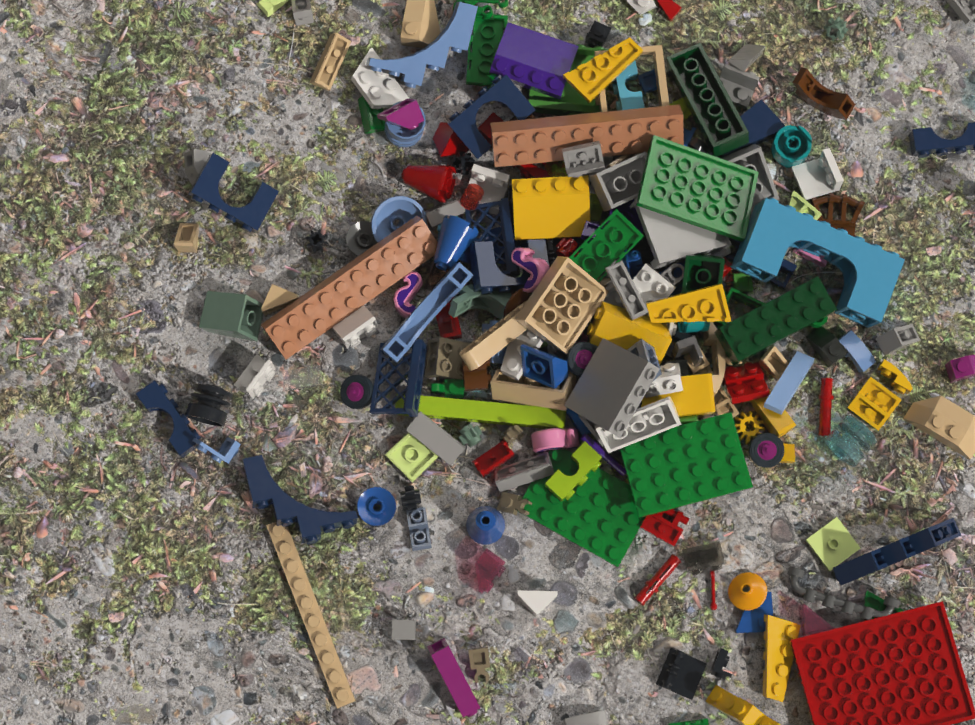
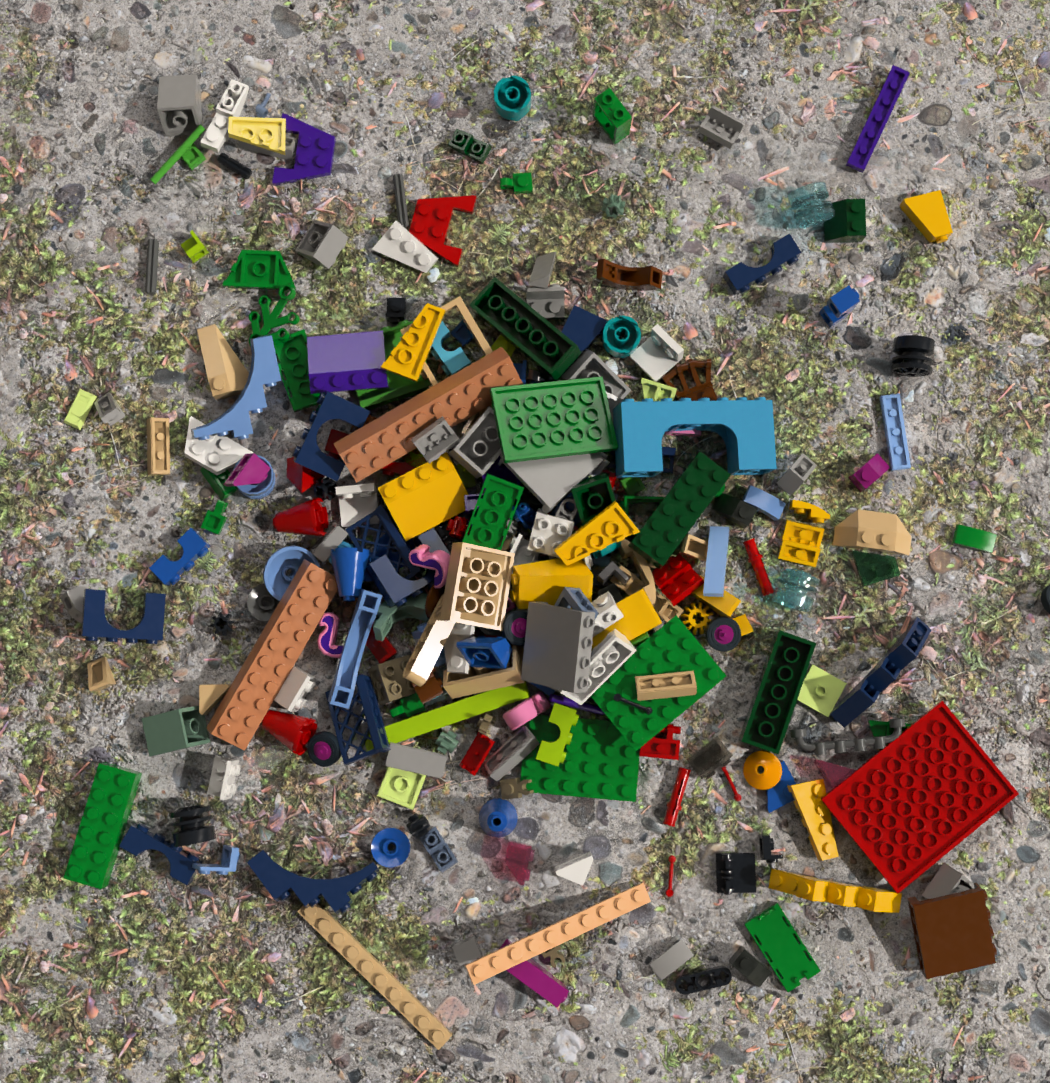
camera: 20 degrees left, 5 degrees up
(129, 369) = (102, 825): none -> green brick
(321, 164) = (193, 547): none -> blue arch
(334, 360) = (290, 729): none -> red cone
(351, 148) = (214, 520): none -> green plate
(472, 196) = (347, 520): clear red wheel -> none
(494, 648) = (557, 933): none -> light nougat plate
(612, 663) = (669, 892): none -> red hinge
(626, 290) = (531, 546): light grey slope -> none
(644, 460) = (648, 710): none -> black hinge
(693, 469) = (665, 685): none -> tan slope
(792, 525) = (777, 691): none -> dark green brick
(933, 455) = (874, 567): none -> clear green wing

